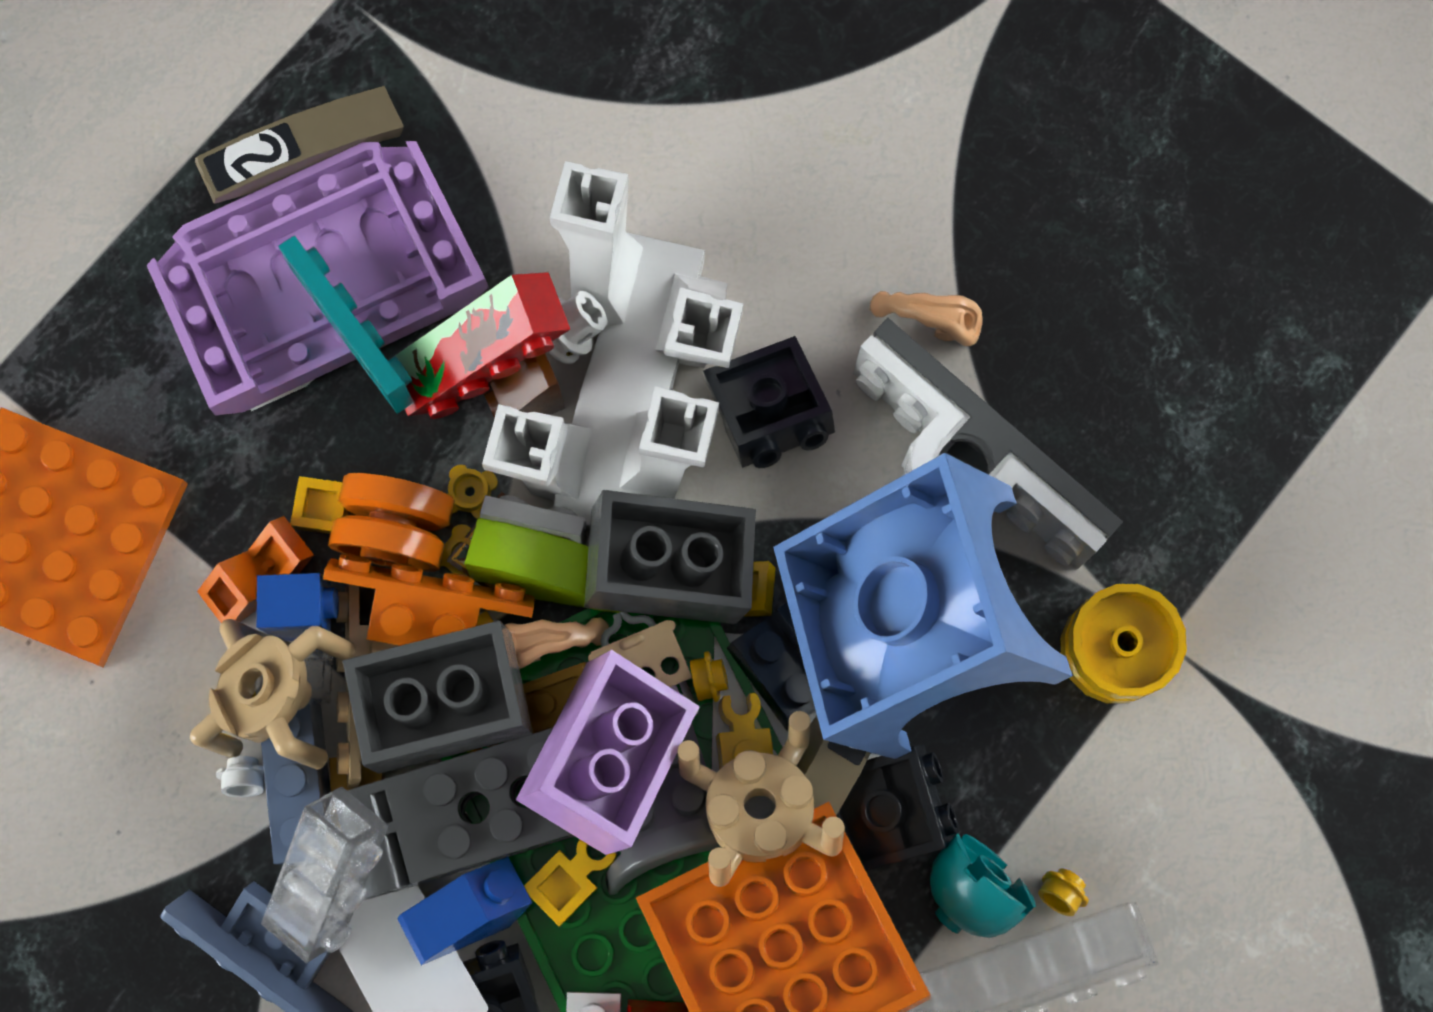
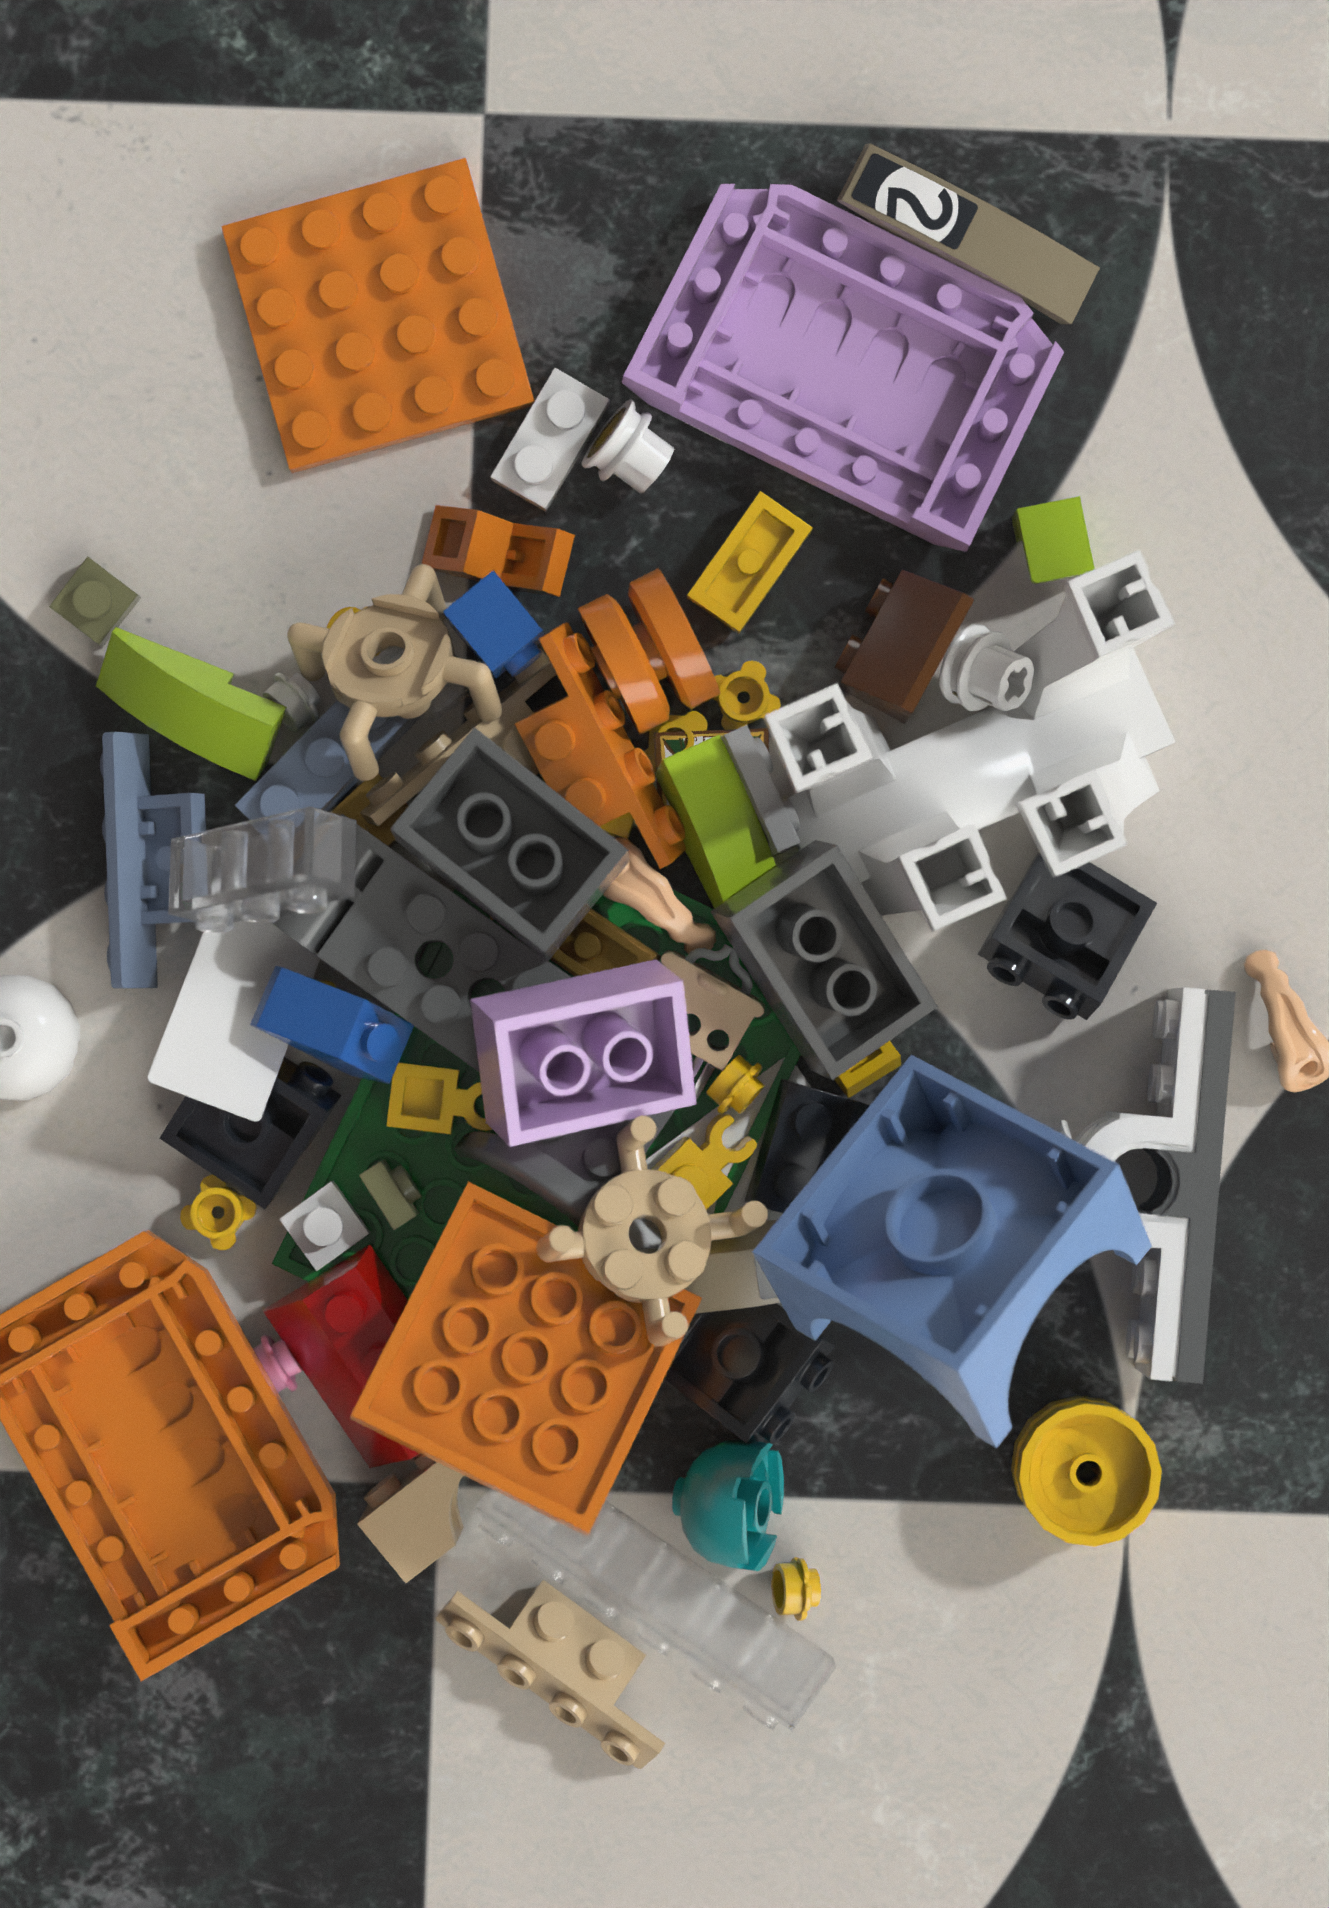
camera: 50 degrees right, 10 degrees up
(77, 857) = (95, 601): none -> olive plate
(188, 843) = (191, 703): none -> lime slope
(215, 489) = (550, 439): none -> white plate
(260, 443) = (629, 449): none -> white piece
(316, 505) = (613, 559): yellow plate -> none
(337, 307) = (824, 418): teal plate -> none
(391, 436) = (749, 562): none -> yellow plate
(483, 343) = (891, 601): red brick -> none
(521, 229) = (1054, 540): none -> lime panel
(605, 955) = (393, 1192): none -> olive plate

